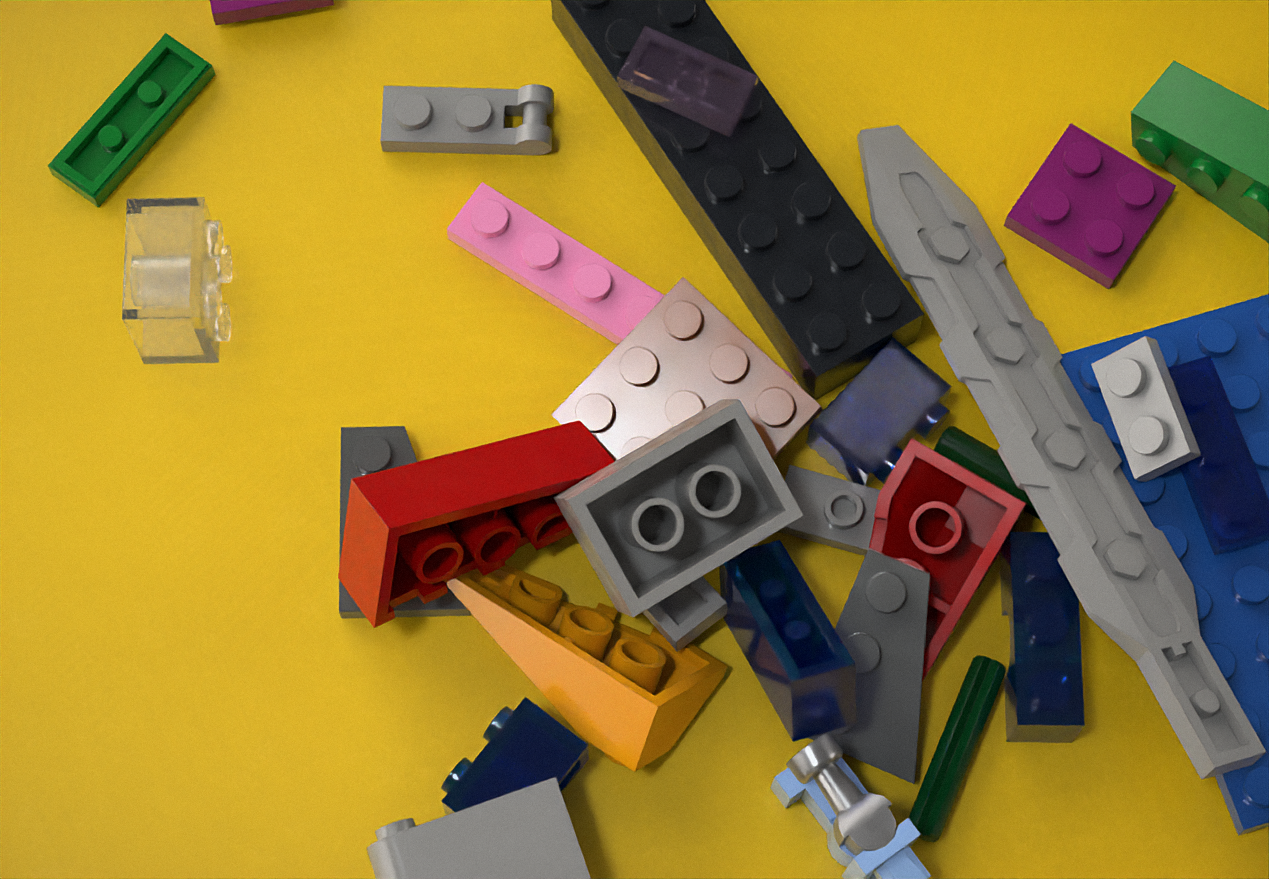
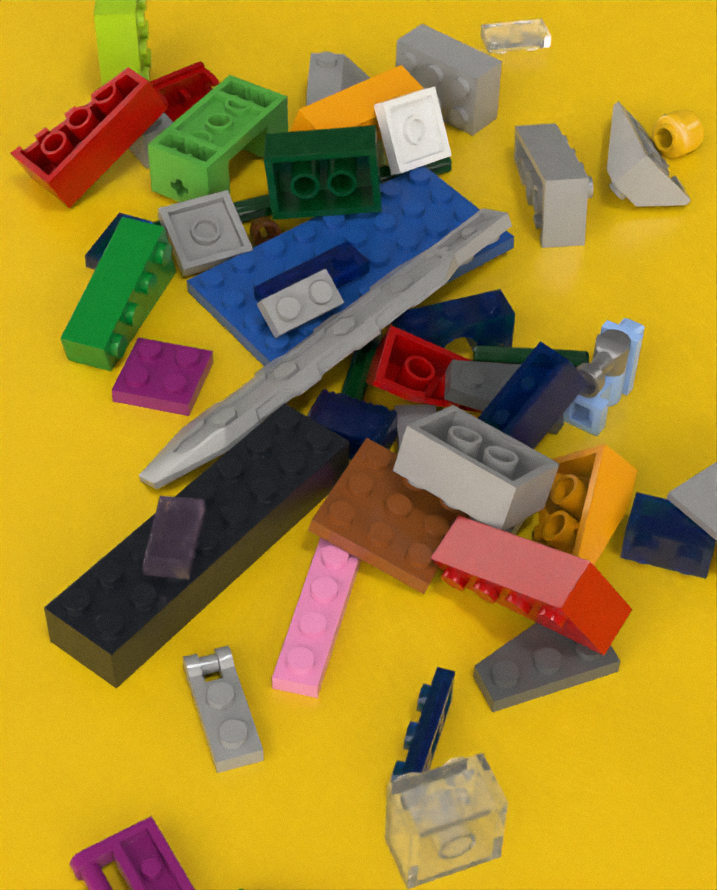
camera: 110 degrees left, 25 degrees down
(315, 320) = (423, 737): none -> clear blue plate

